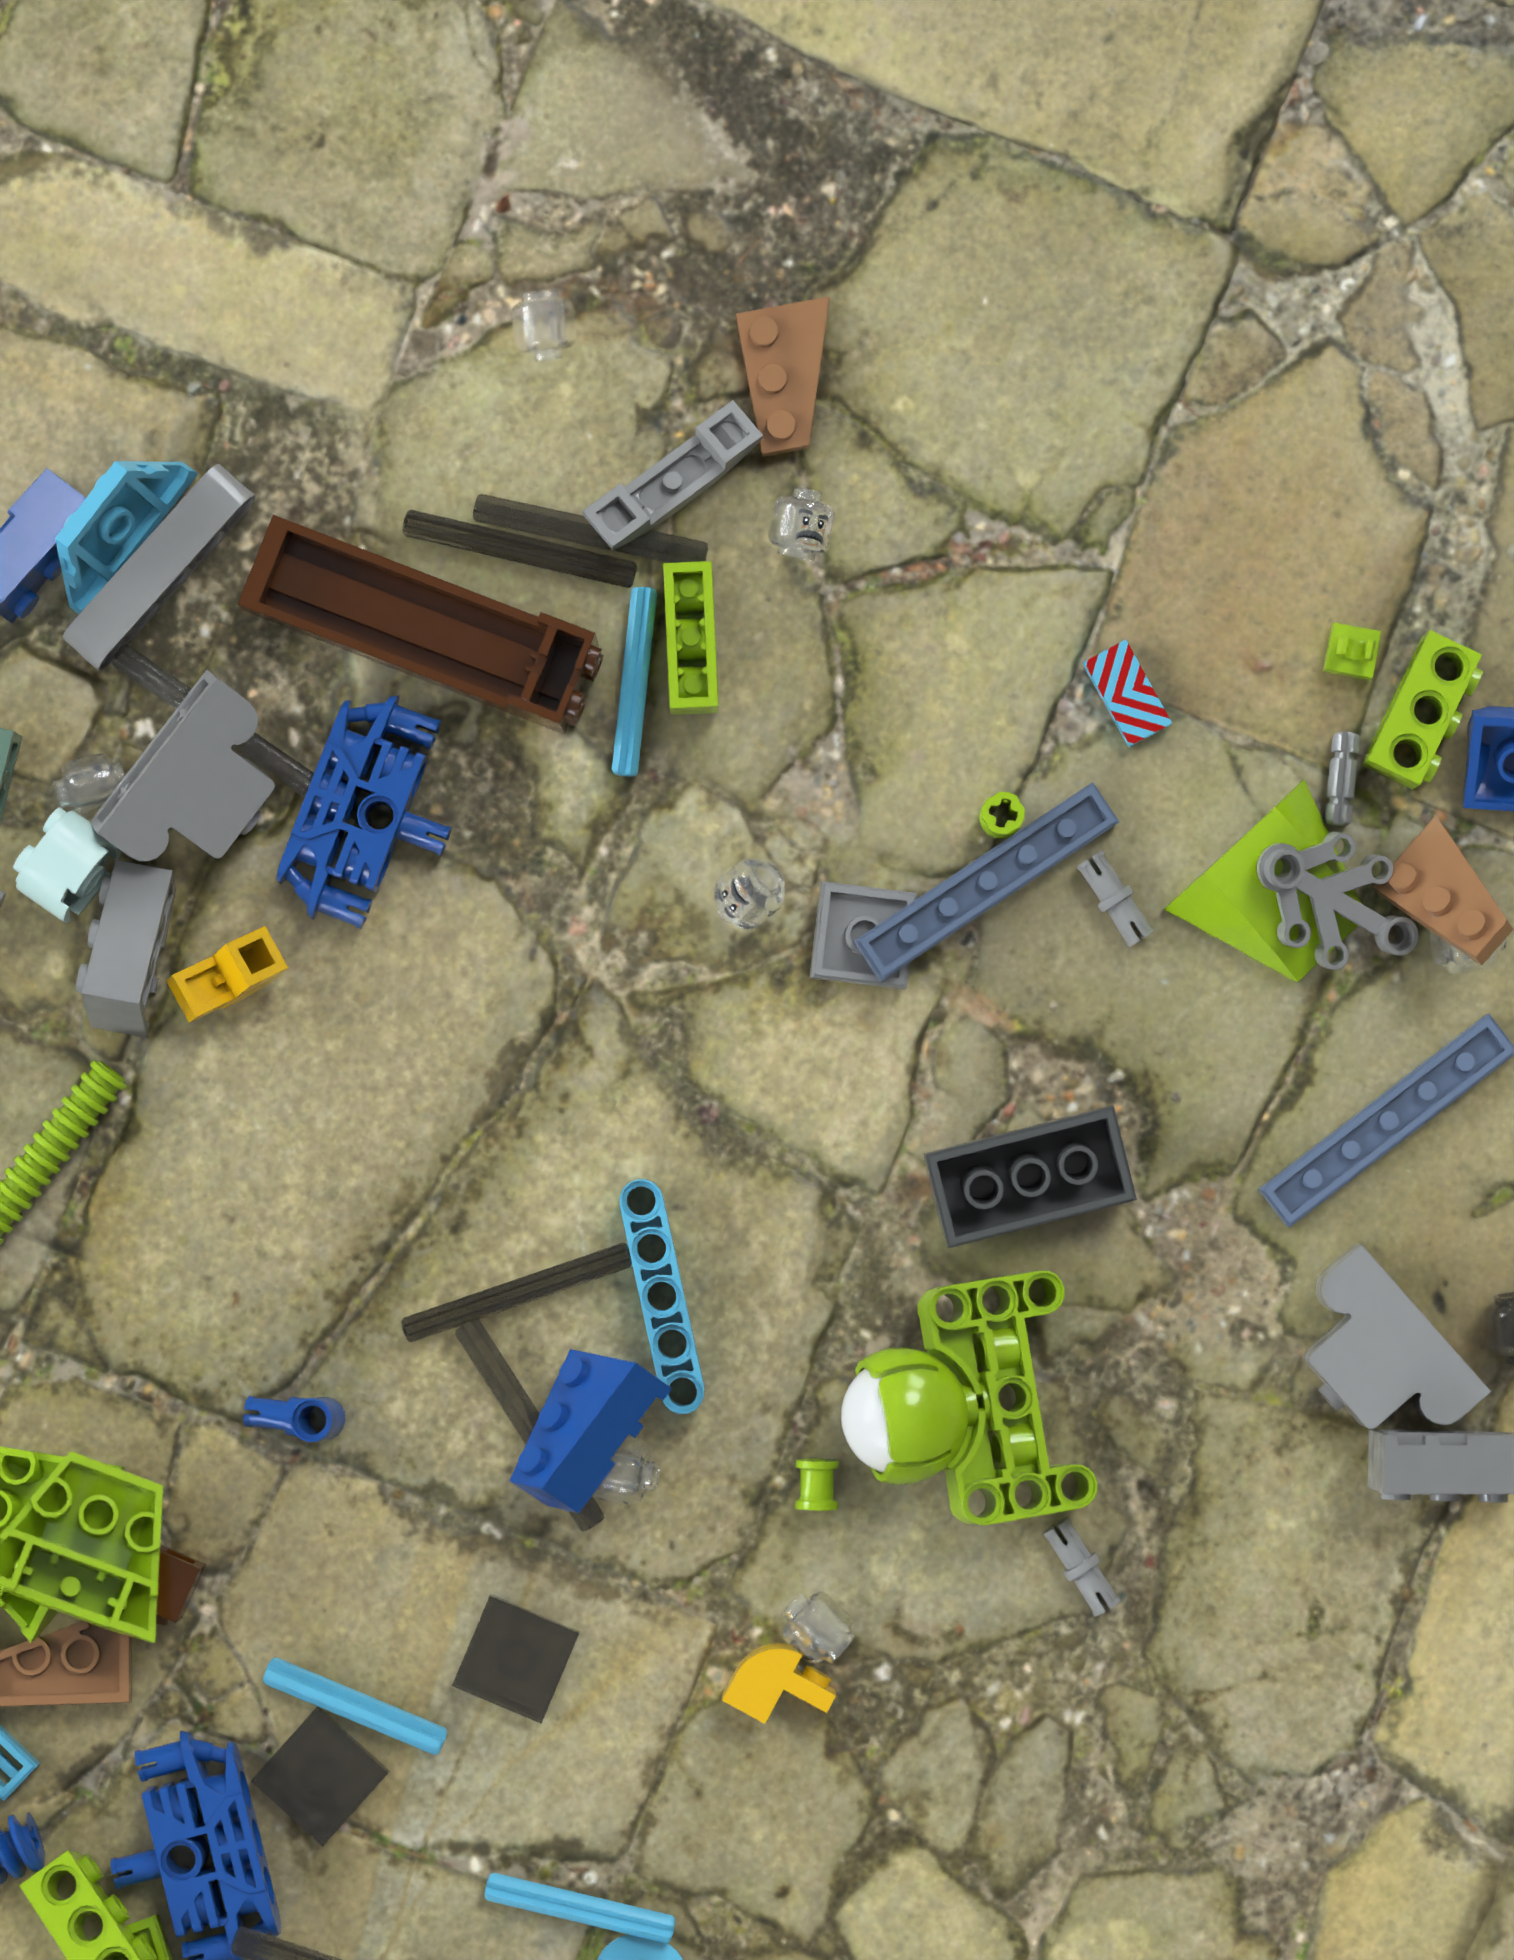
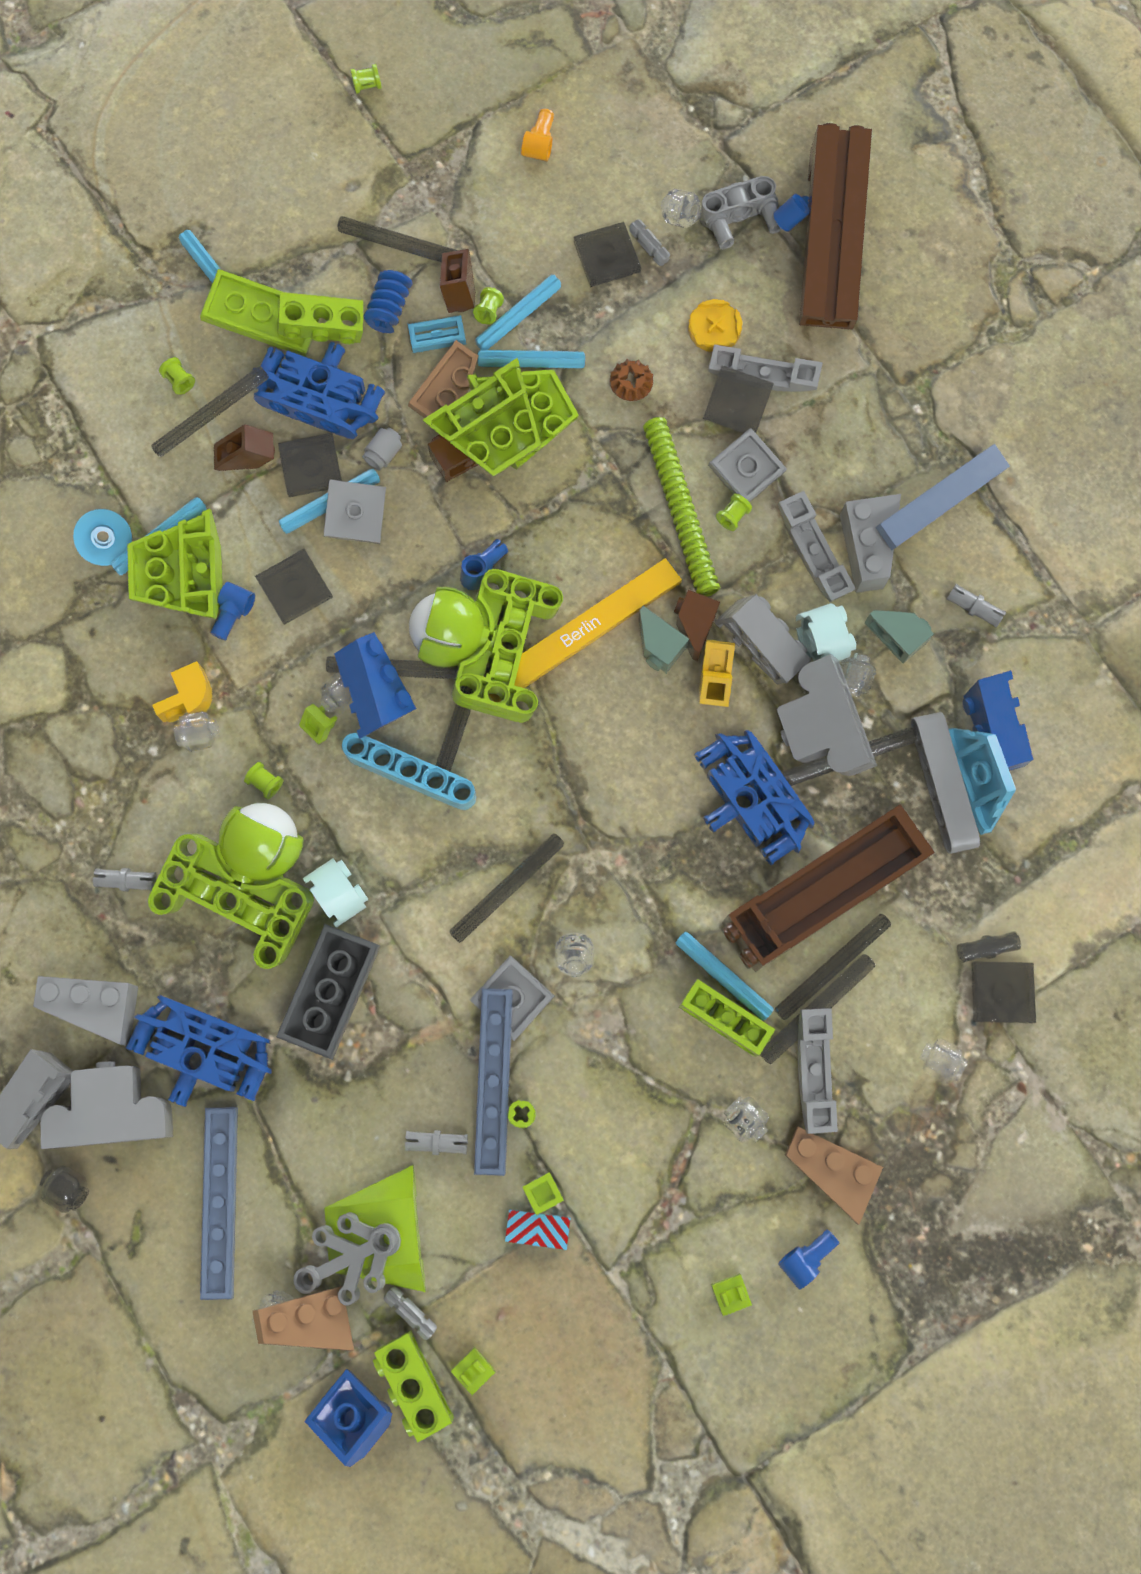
camera: 125 degrees right, 10 degrees down
(167, 1059) = (695, 620): none -> reddish brown slope
(224, 1688) = (382, 448): none -> light grey brick
(233, 1088) = (660, 641): none -> sand green slope
(293, 1208) = (594, 623): none -> yellow tile
(347, 364) = (988, 946): none -> clear smoke pin
(347, 1653) = (354, 511): none -> light grey plate
(369, 1886) = (244, 449): none -> reddish brown slope
(394, 306) = (1003, 992): none -> clear smoke tile
(418, 1361) = (463, 632): none -> lime beam
(600, 1720) = (233, 603): none -> blue pin
(610, 1834) = (178, 567): none -> lime wedge
(687, 1472) = (316, 723): none -> lime tile
(723, 1049) = (506, 888): none -> clear smoke axle
(897, 1265) = (335, 891): none -> light aqua brick
(928, 333) = (803, 1262): none -> blue pin
(1030, 397) = (731, 1294): none -> lime tile
(1080, 716) = (543, 1193): none -> lime tile
(1192, 1296) = (210, 1031): none -> blue piece
(1273, 1477) = (90, 1004): none -> light grey wedge

